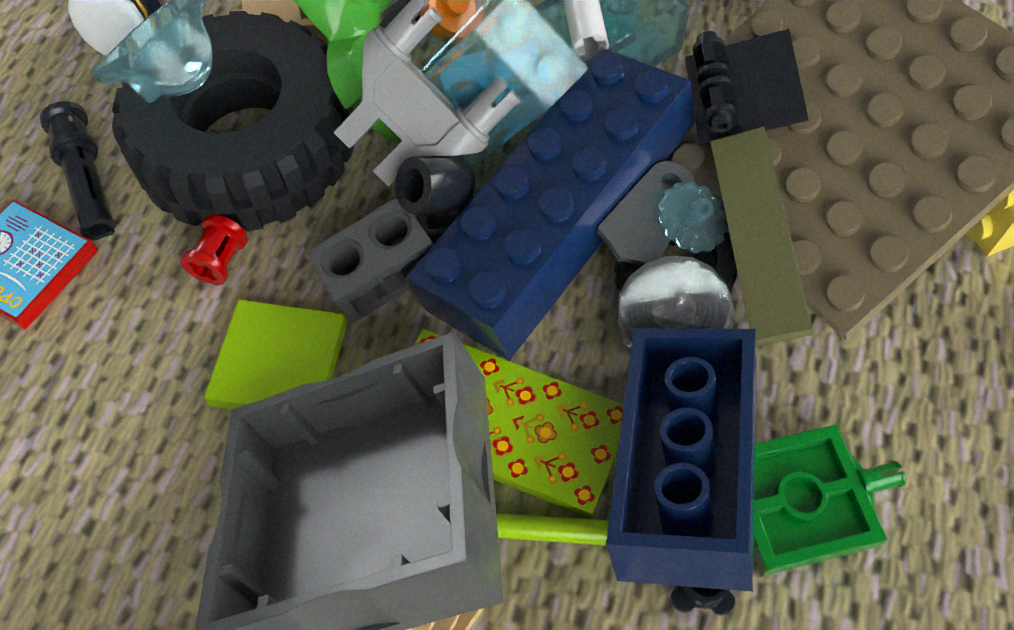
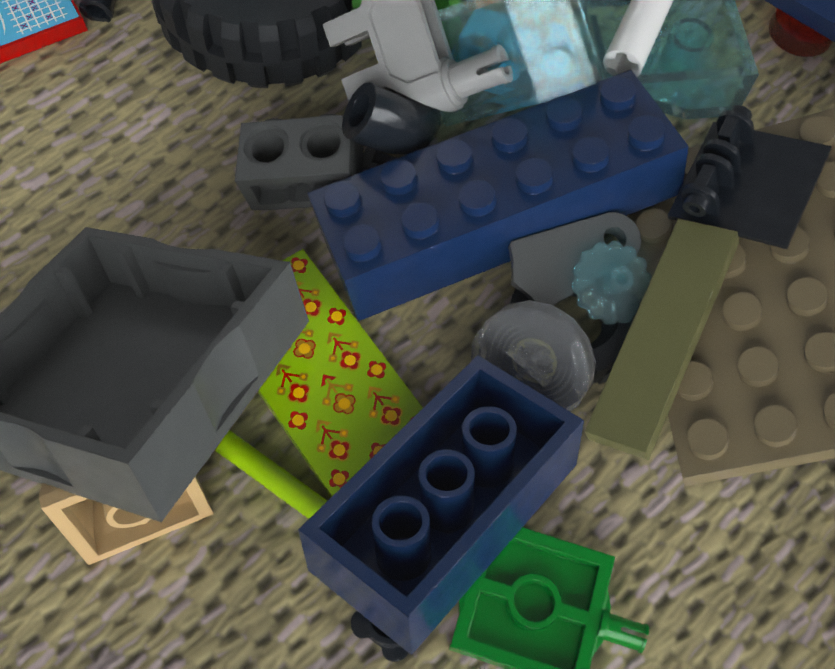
camera: 25 degrees right, 5 degrees up
(214, 249) = (185, 65): red bush -> none
(273, 351) = (167, 199): lime tile -> none

